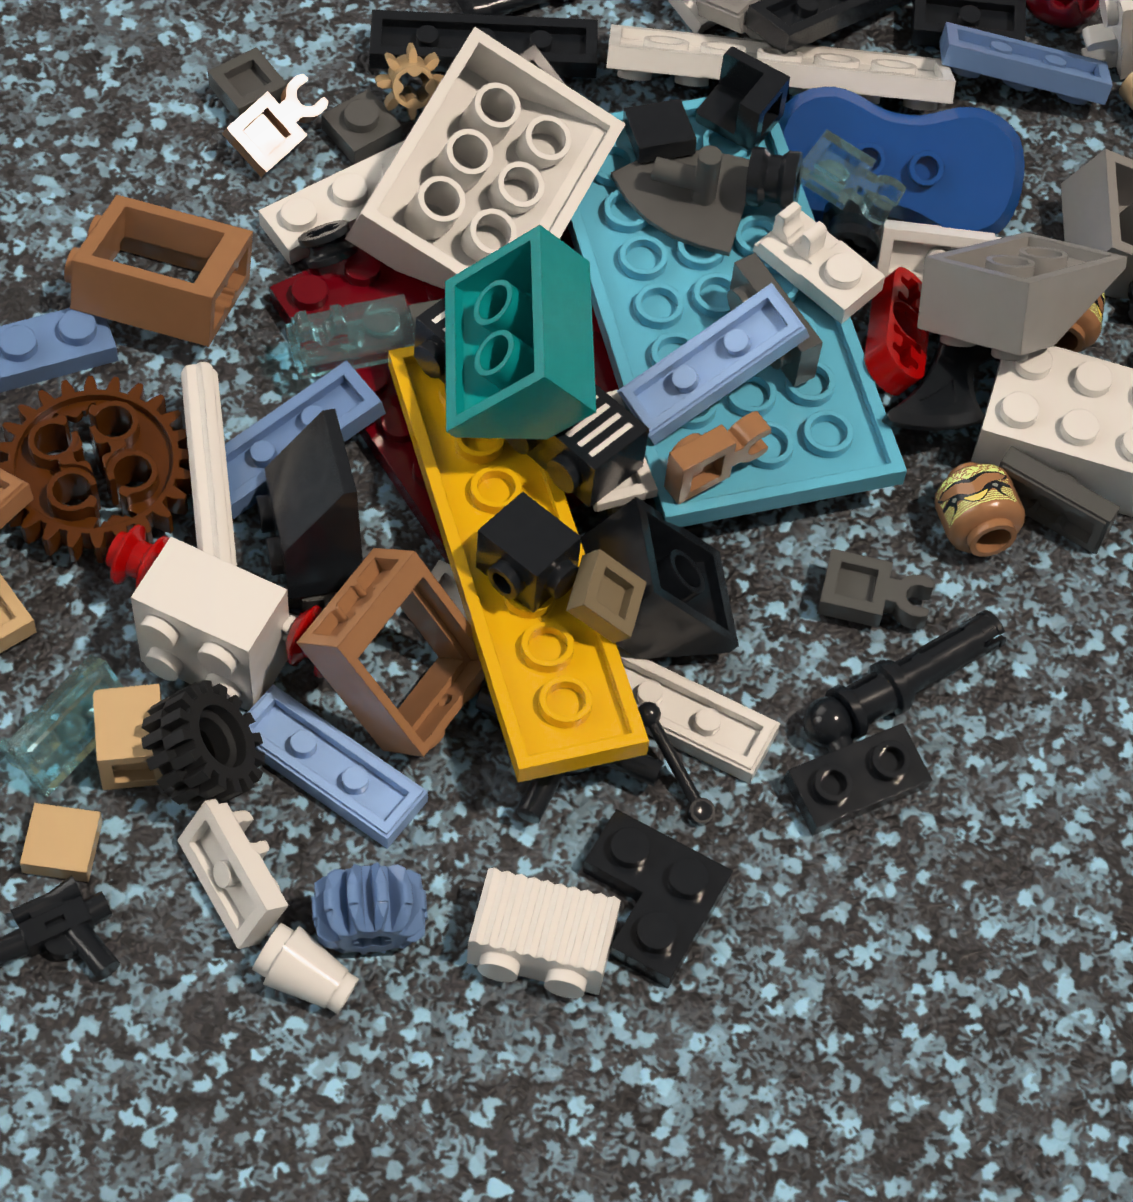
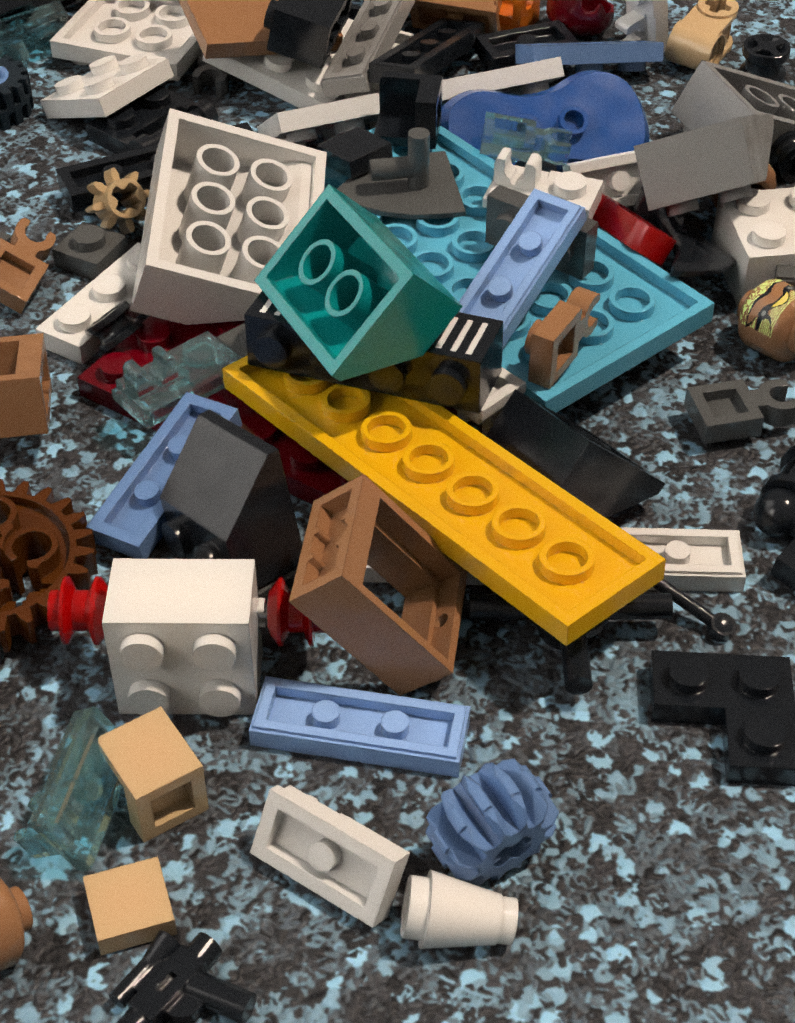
camera: 20 degrees left, 15 degrees down
(203, 745) = (235, 743): black tyre -> none
(208, 461) = (91, 498): white axle -> none
(528, 553) = (460, 450): black brick -> none
(542, 933) = (663, 778): white brick -> none
(606, 596) = (552, 457): dark tan plate -> none
(773, 177) = (471, 146): black wheel -> none

